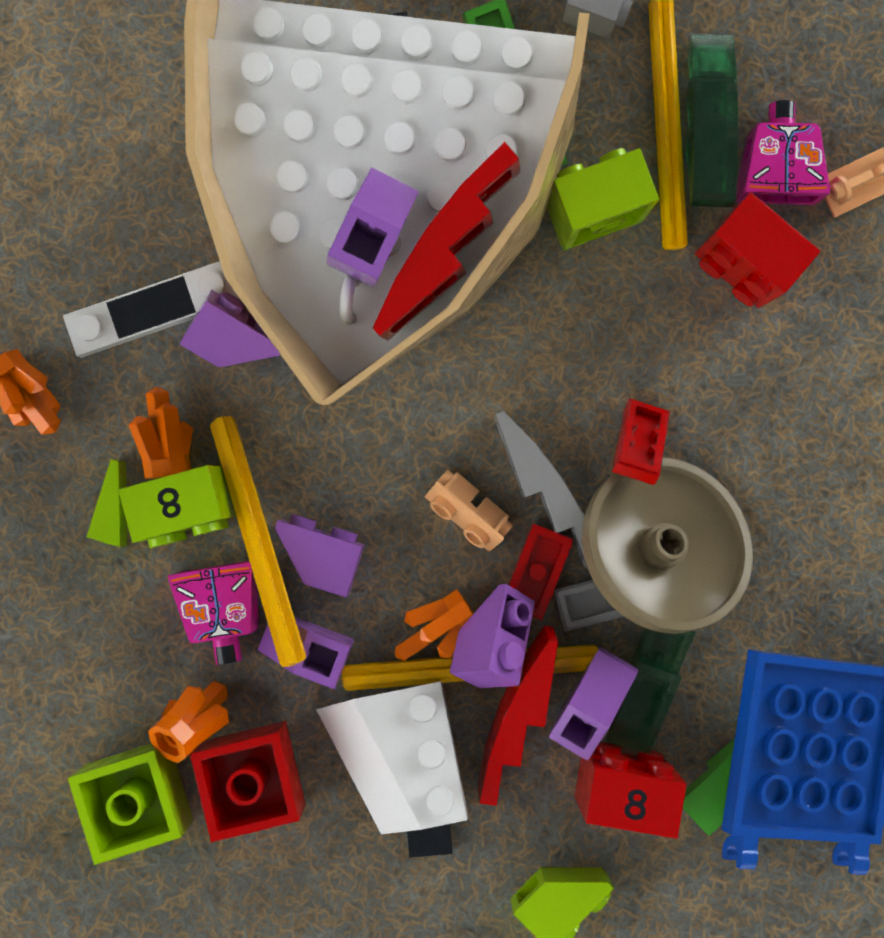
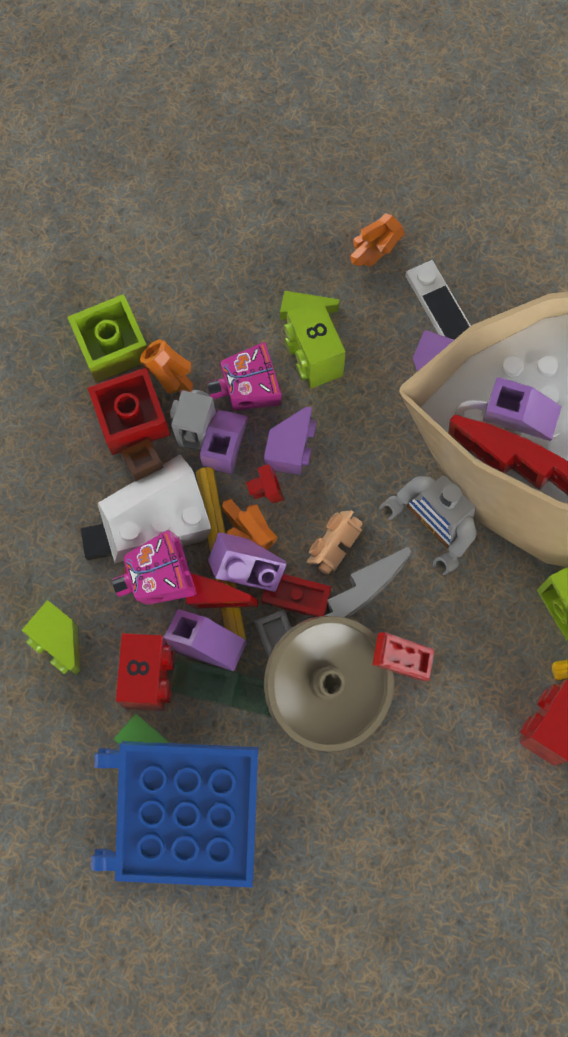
camera: 90 degrees right, 15 degrees down
(161, 438) = (356, 329): orange rock -> none
(258, 542) = (295, 396): yellow axle -> none
(272, 694) = (191, 418): none -> light grey brick
(322, 766) = (142, 459): none -> reddish brown tile
(379, 593) = (266, 485): none -> red tile
(449, 361) = (442, 510): none -> light grey torso
(501, 765) = (156, 571): none -> dark pink torso

